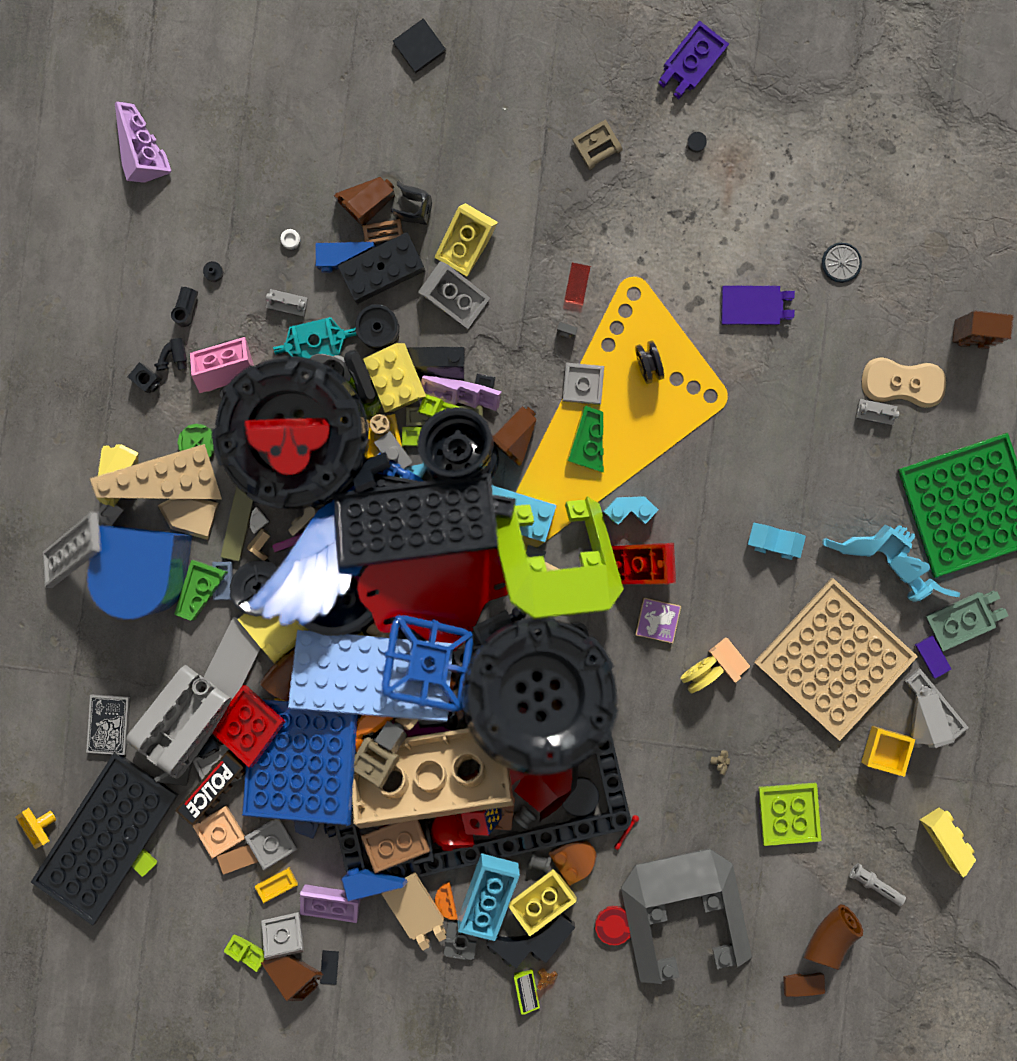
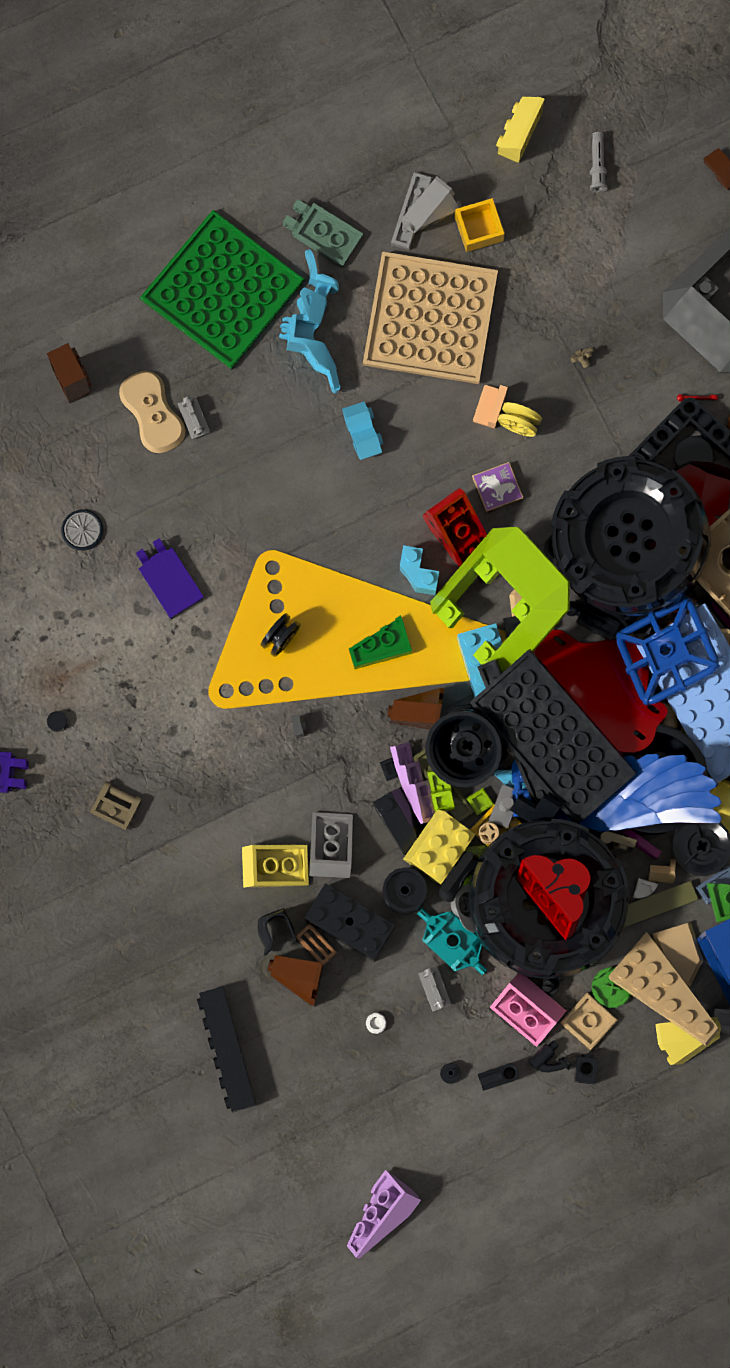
camera: 130 degrees left, 10 degrees down
(182, 407) = (588, 1021): none -> tan tile
(333, 254) = (364, 970): blue slope -> none
(345, 107) = (227, 1049): none -> black brick
(419, 45) = (128, 1021): black tile -> none
(577, 283) = (249, 745): clear red tile -> none
(583, 383) = (334, 682): light grey tile -> none
(789, 814) = (587, 272): lime plate -> none
(834, 937) = (666, 170): reddish brown brick -> none
(933, 657) = (373, 238): dark purple tile -> none

